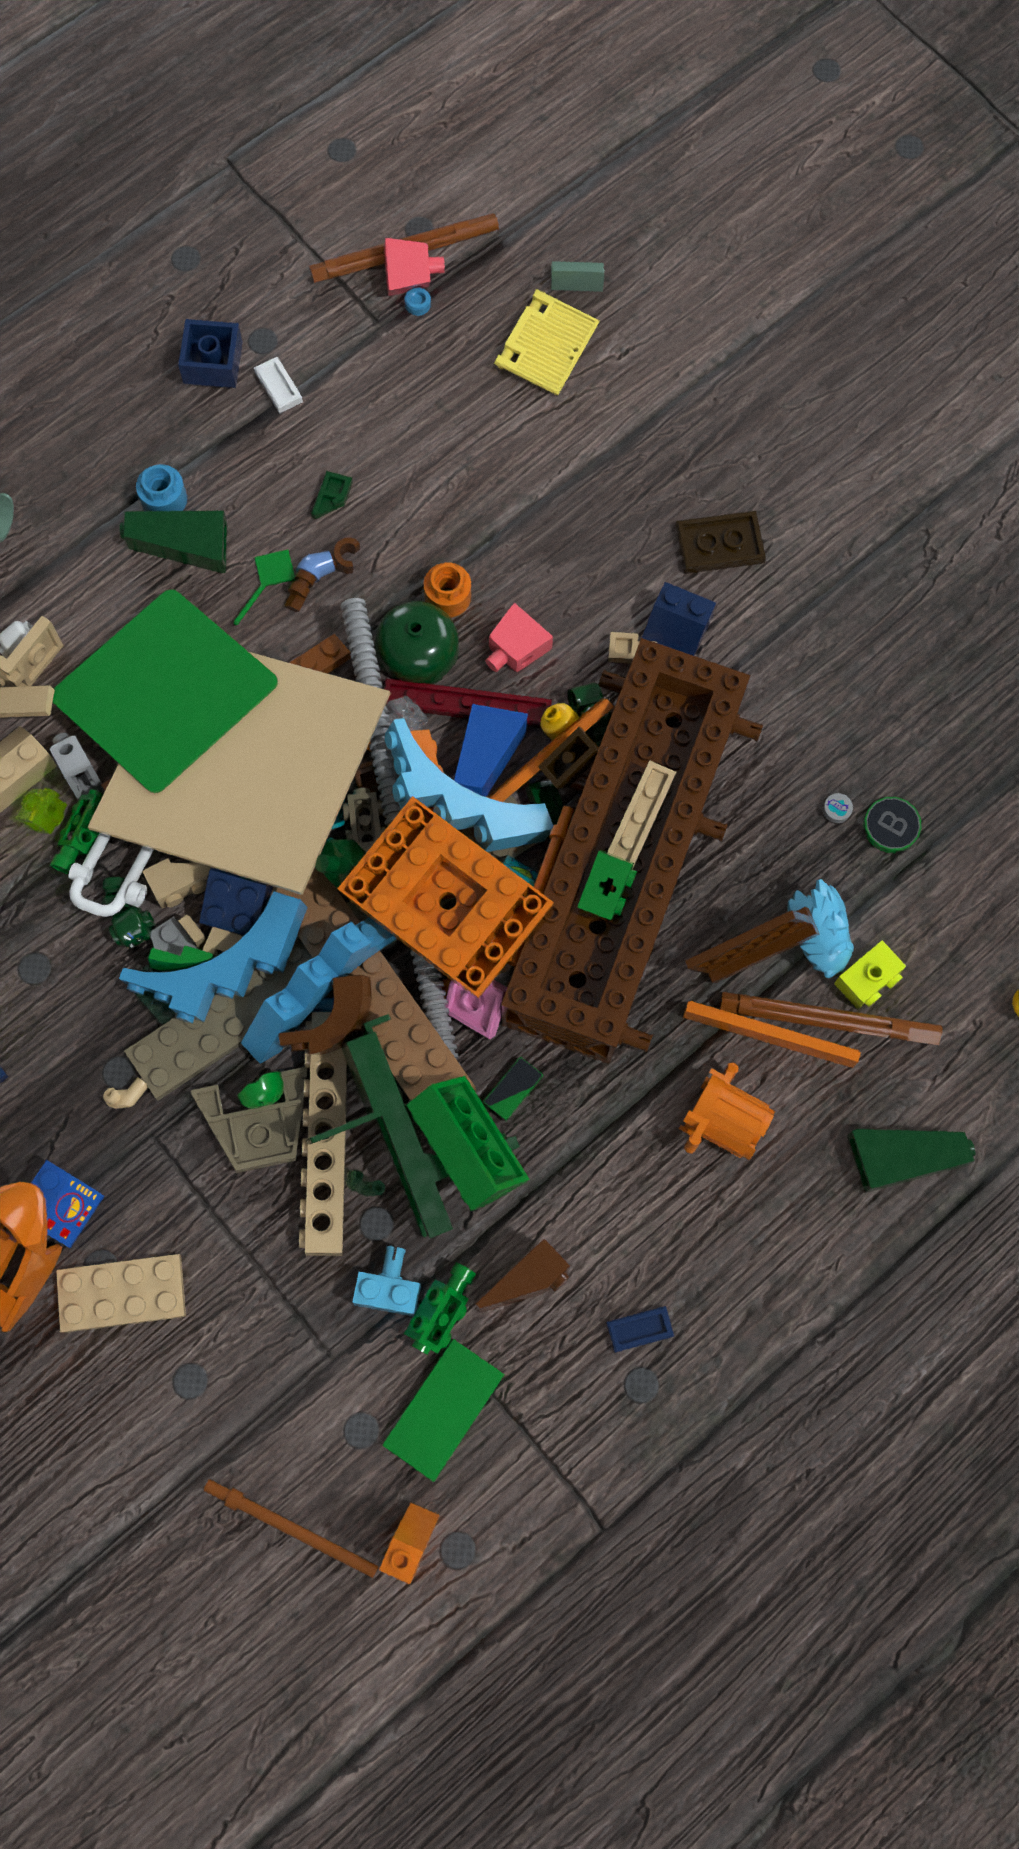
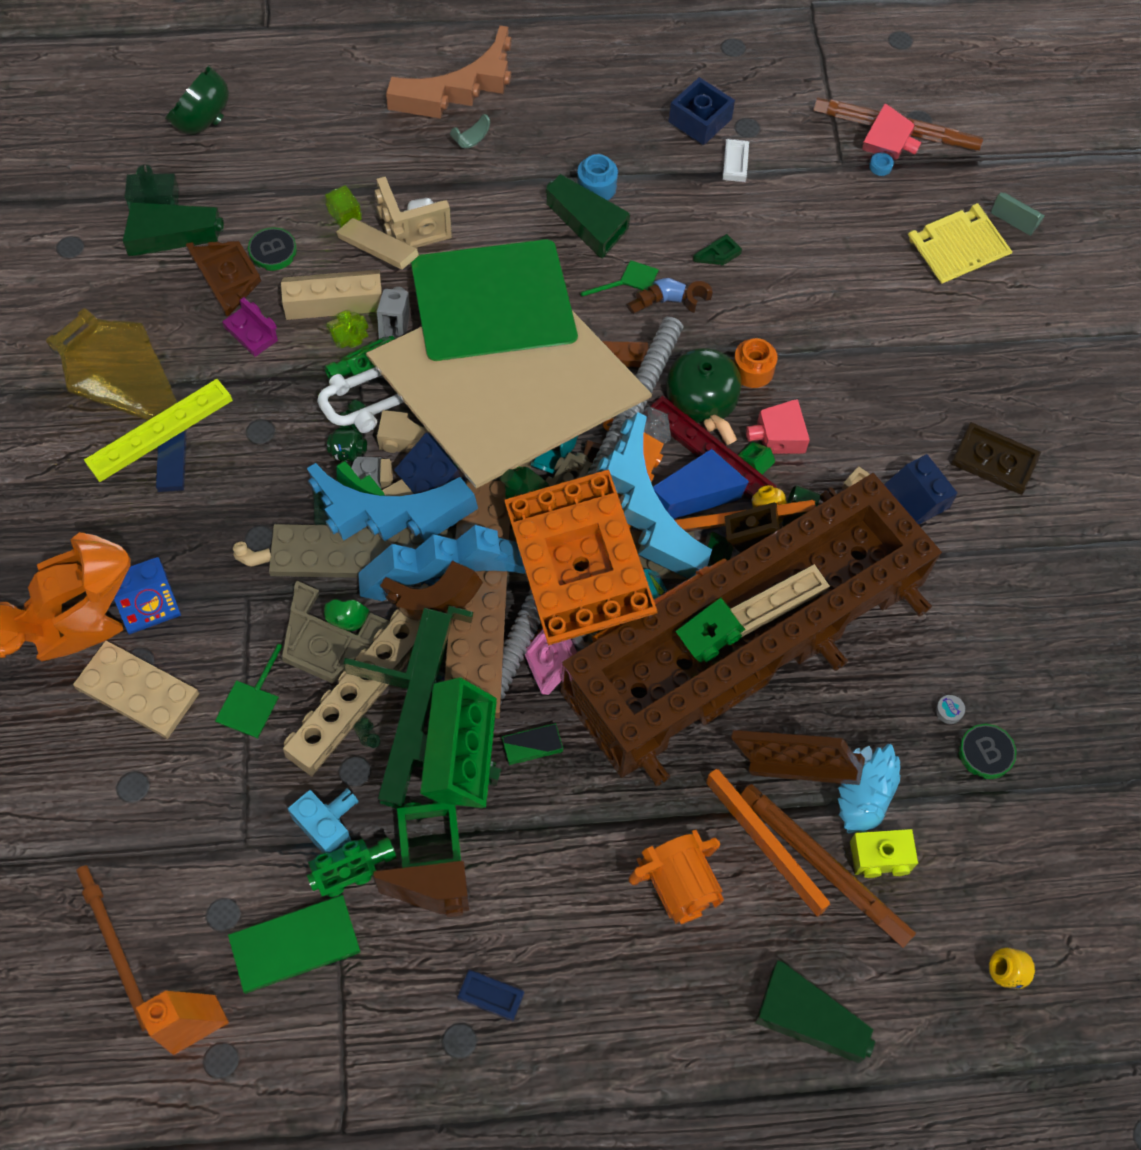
camera: 35 degrees right, 10 degrees down
(237, 1235) = (248, 706): none -> green piece
(459, 1222) = (417, 811): none -> green window
(464, 673) = (722, 426): none -> light nougat arm
(513, 681) = (758, 457): none -> green slope

